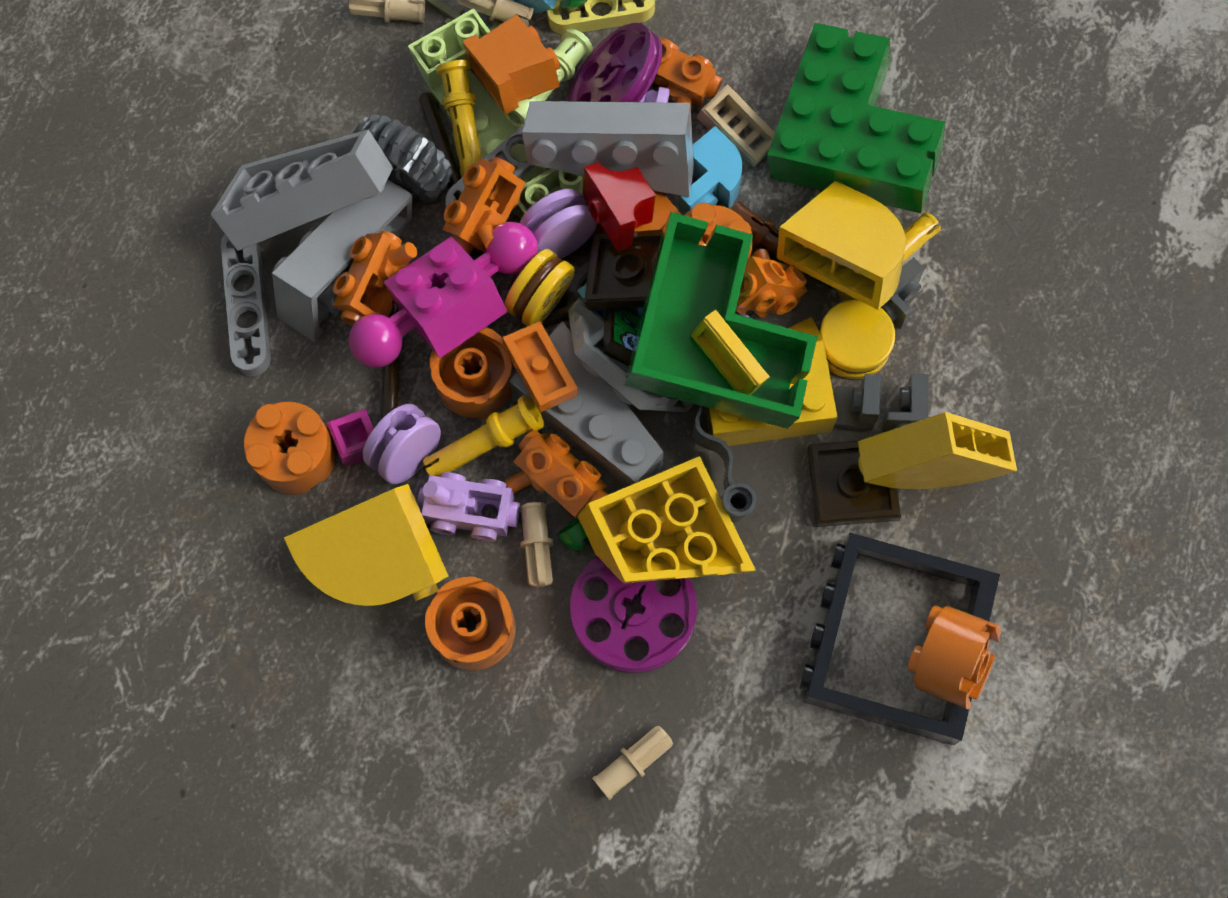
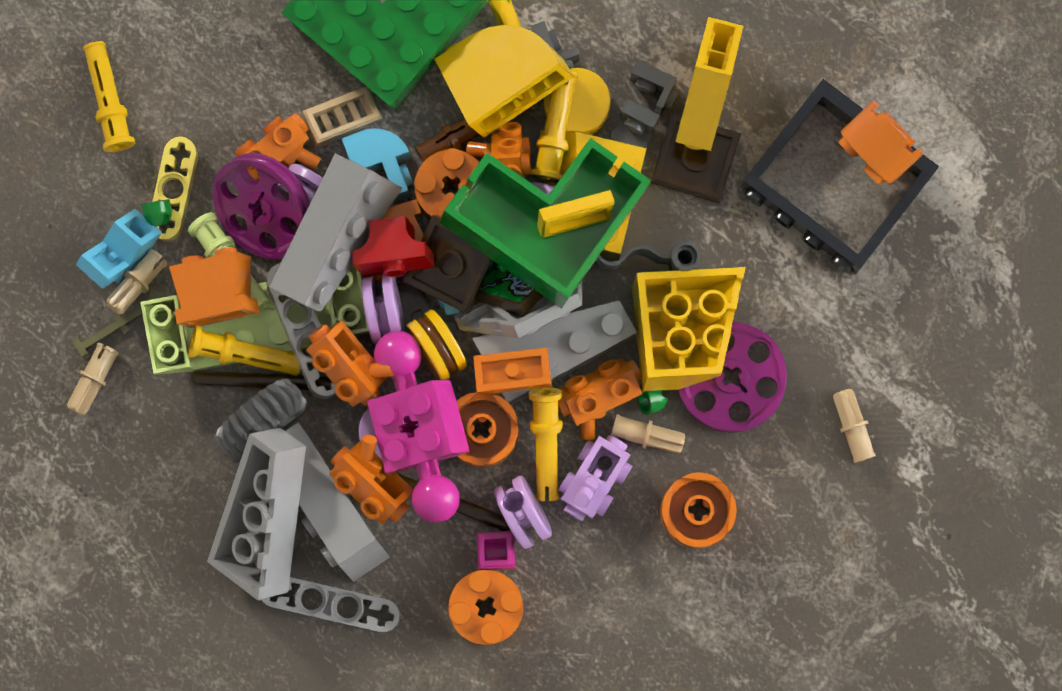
camera: 70 degrees left, 10 degrees up
(371, 552) = (606, 570): yellow brick -> none
(824, 317) = (552, 143): none -> yellow pin

